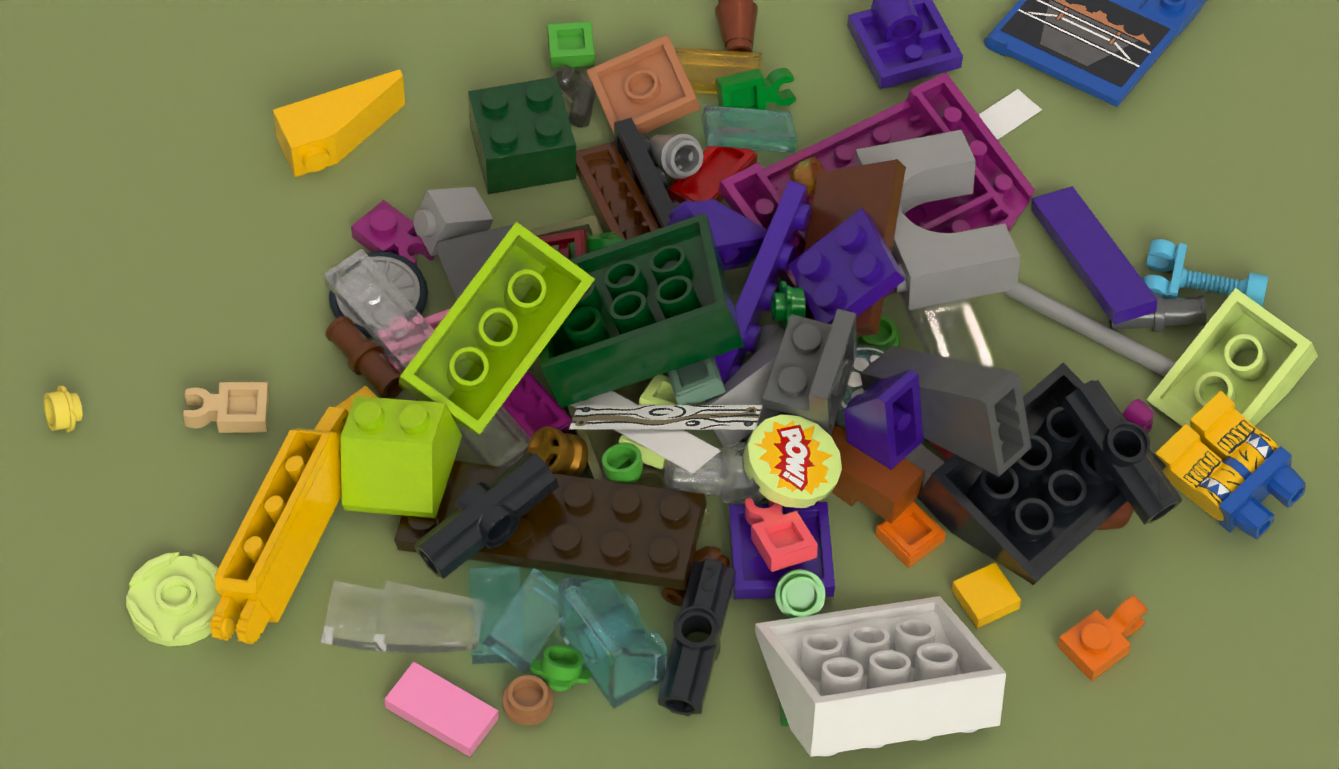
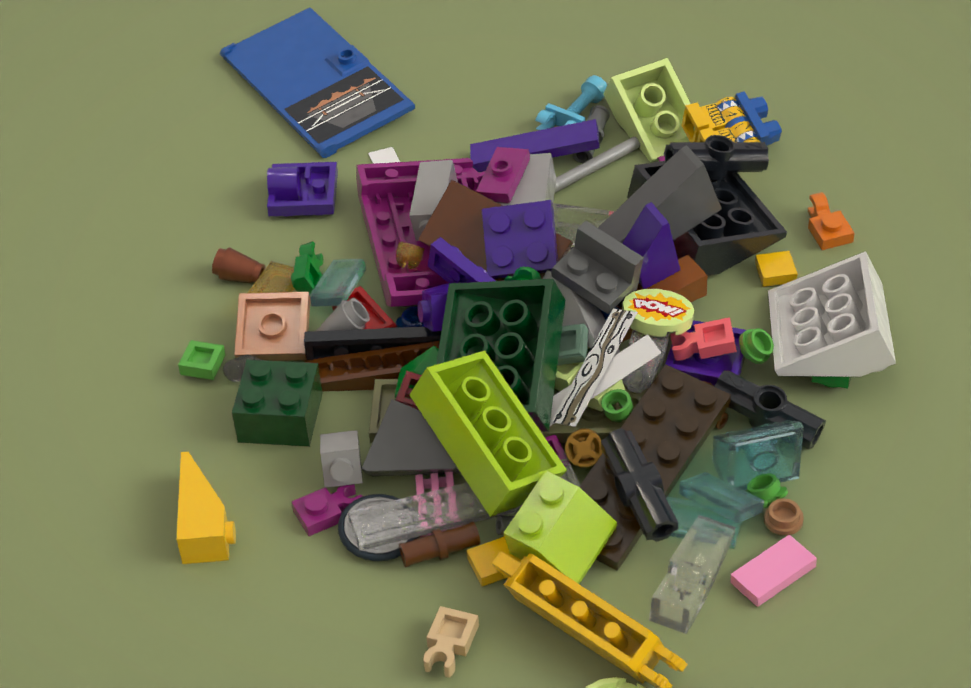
camera: 65 degrees left, 10 degrees down
(911, 535) = (719, 293): orange tile -> none
(951, 216) = (504, 174): none -> magenta plate

